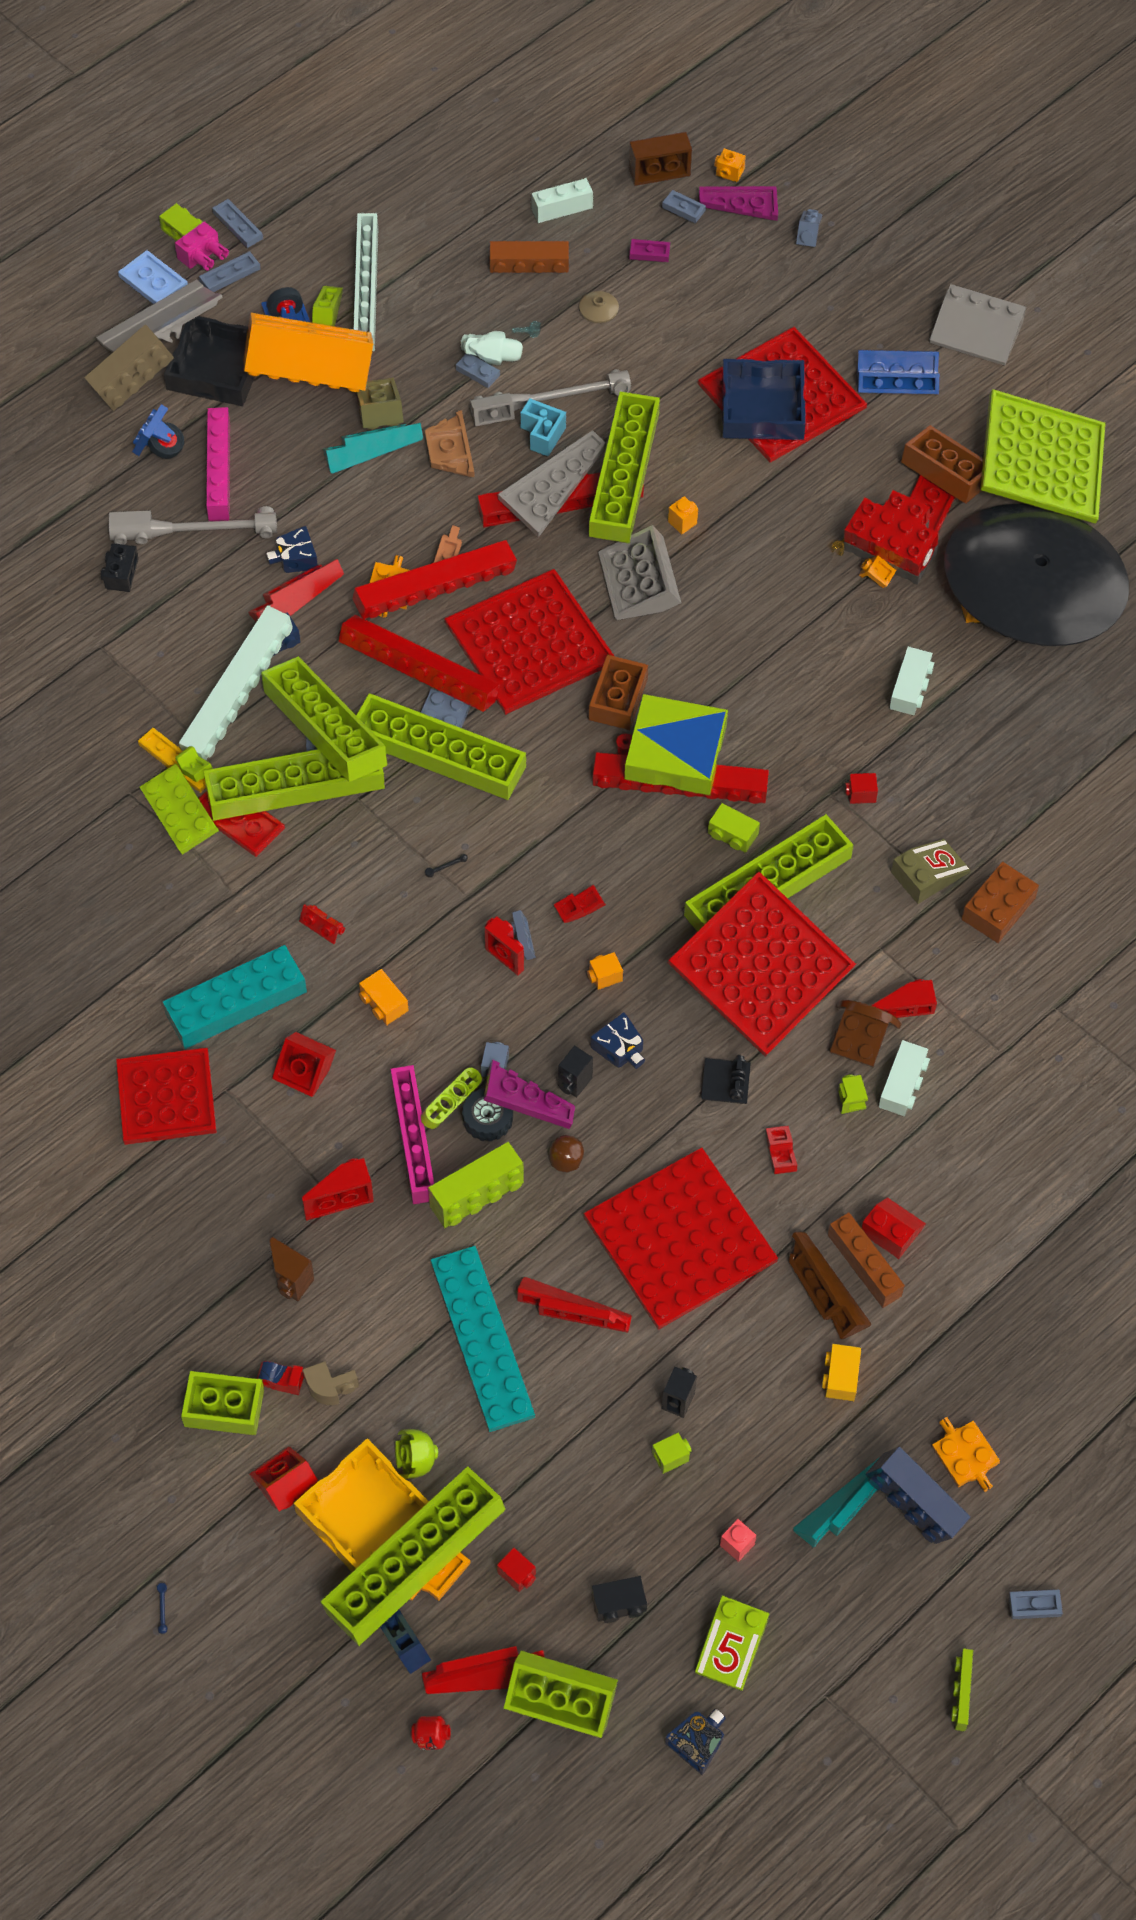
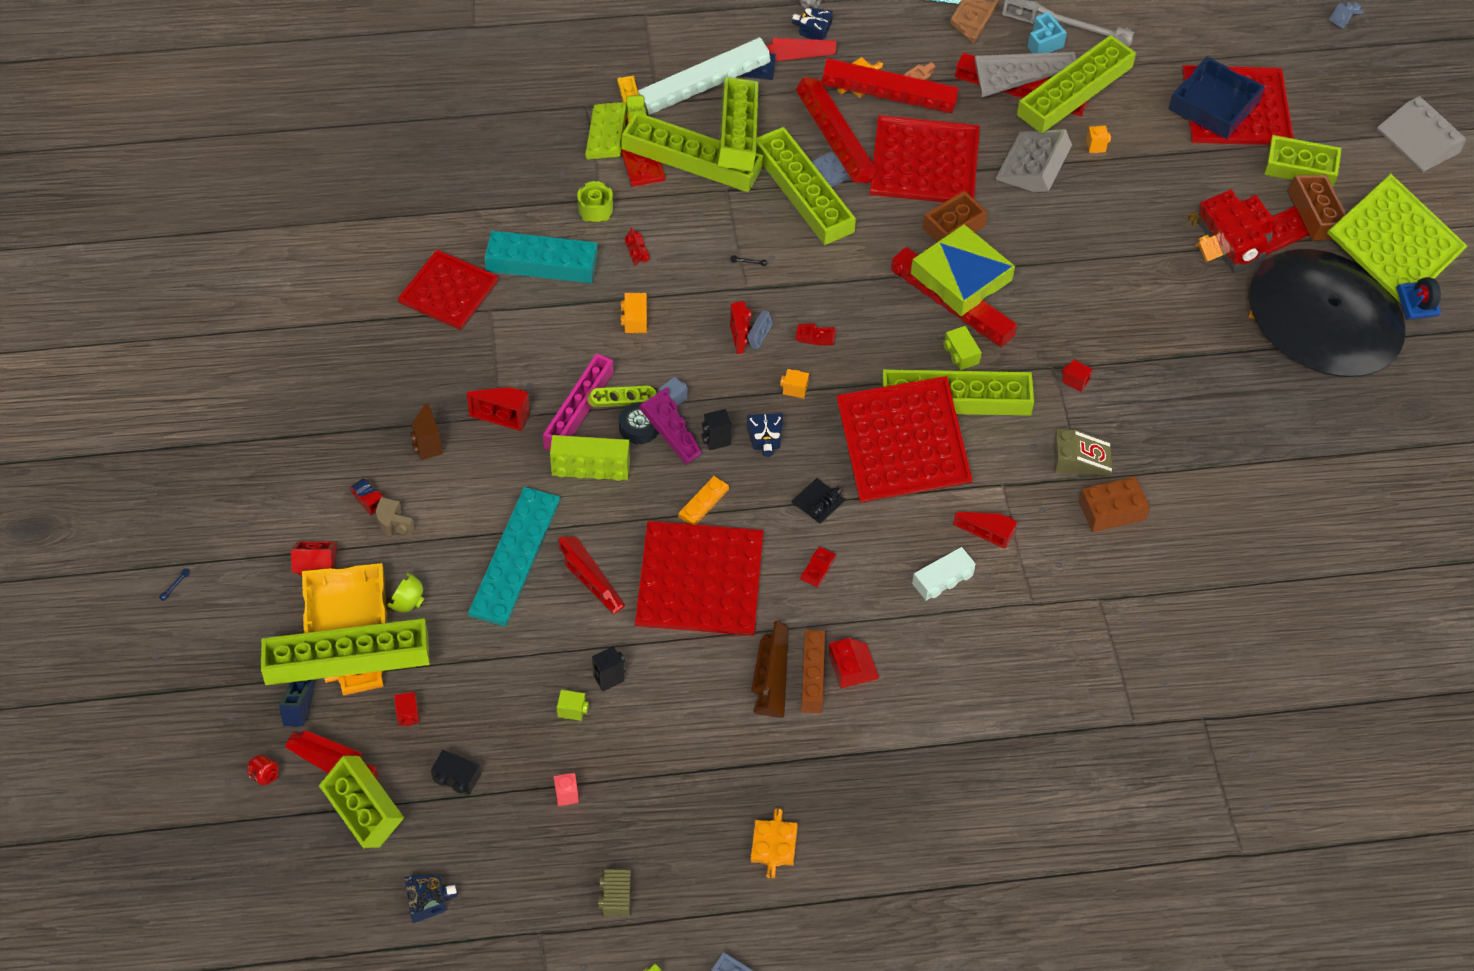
camera: 35 degrees right, 5 degrees down
(222, 1403) = (316, 486): lime brick -> none
(239, 899) = (595, 202): none -> lime brick
(303, 1063) = (549, 321): red slope -> none
(566, 1153) = (670, 478): reddish brown hair -> none
(617, 1155) = (703, 501): none -> light orange plate
(732, 1643) = (505, 851): lime slope -> none
(837, 1510) = (663, 819): teal wedge -> none
(842, 1373) = (733, 732): yellow brick -> none
(852, 1093) = (897, 561): lime window -> none
(861, 1032) = (939, 527): reddish brown piece -> none
(867, 1606) = (616, 892): none -> olive brick
(892, 421) = (1296, 157): none -> lime brick
(898, 371) = (1332, 130): blue slope -> none
(912, 681) = (1172, 328): light aqua brick -> none
(917, 1496) = (708, 840): dark blue brick -> none
(1110, 506) = (1420, 298): none -> plate

